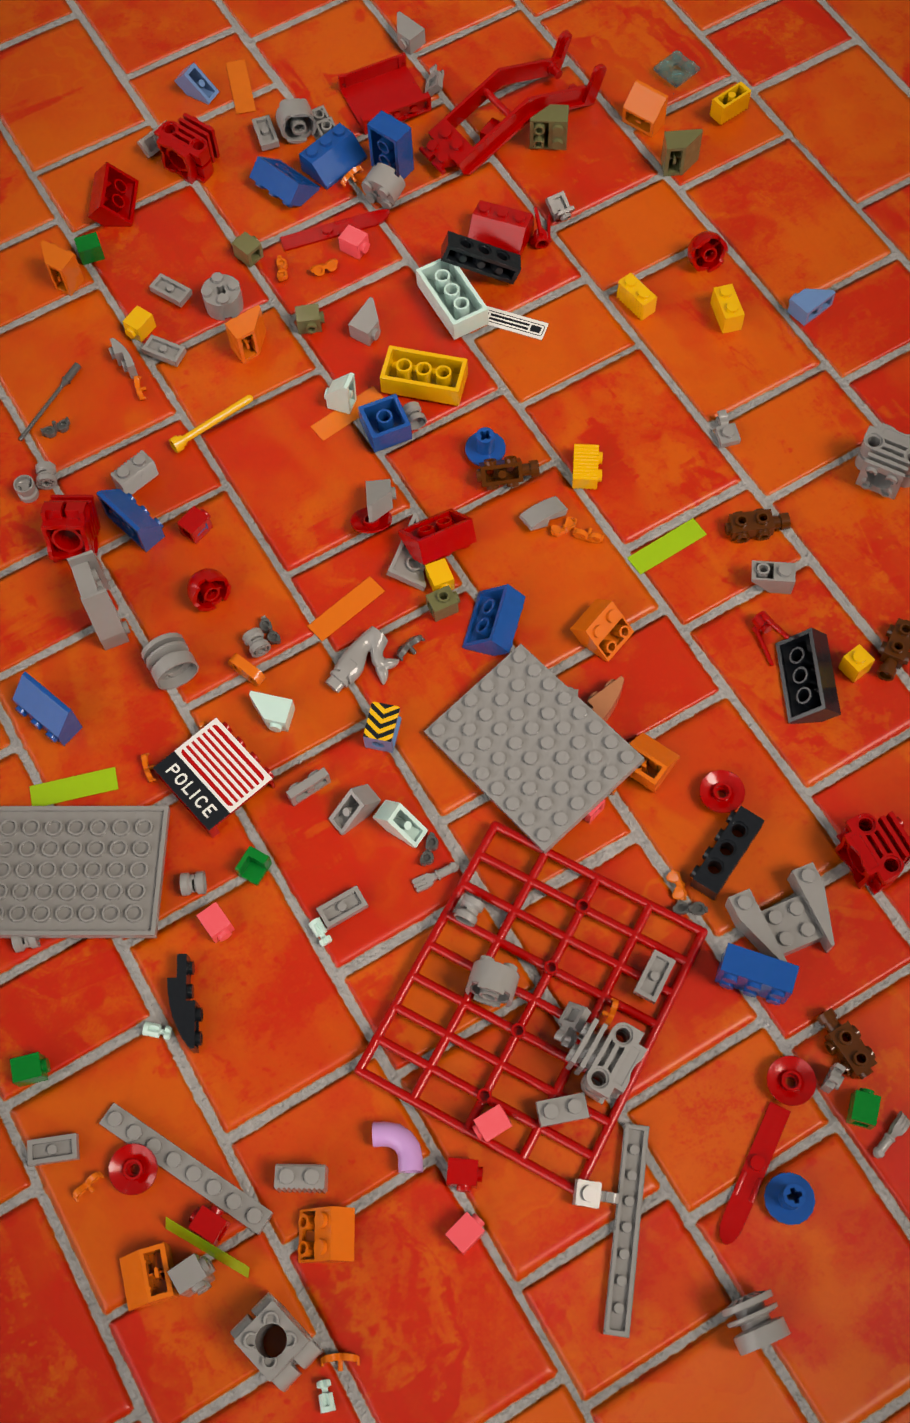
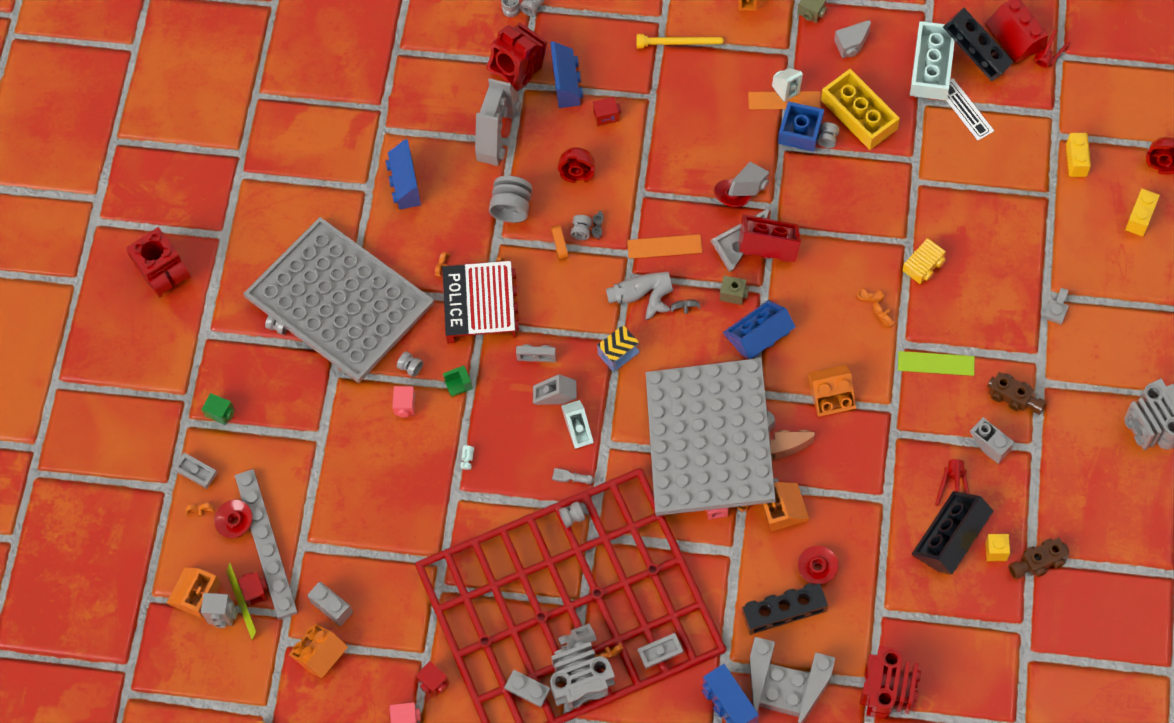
camera: 40 degrees right, 0 degrees up
(74, 787) = (384, 243): lime sticker -> none
(134, 473) = (593, 44): light grey brick -> none
(154, 1030) = (313, 443): light aqua piece -> none
(184, 1011) = (339, 445): black slope -> none
(274, 710) = (554, 284): light aqua slope -> none
(299, 1347) = (246, 699): light grey piece -> none
(342, 907) = (493, 452): light grey plate -> none
(402, 1141) = (409, 628): lavender cylinder -> none
(432, 844) = (587, 454): dark grey piece -> none
(439, 575) = (747, 268): yellow brick -> none
(484, 445) = (861, 196): blue piece -> none
(491, 1123) = (474, 660): coral brick -> none
(493, 982) = (547, 571): light grey brick -> none
(501, 475) = (857, 224): reddish brown brick -> none
(540, 514) = (861, 273): light grey slope -> none
(559, 206) = (1081, 41): light grey bracket -> none
(679, 892) = (729, 610): orange piece -> none
(696, 908) = (722, 623): dark grey piece -> none

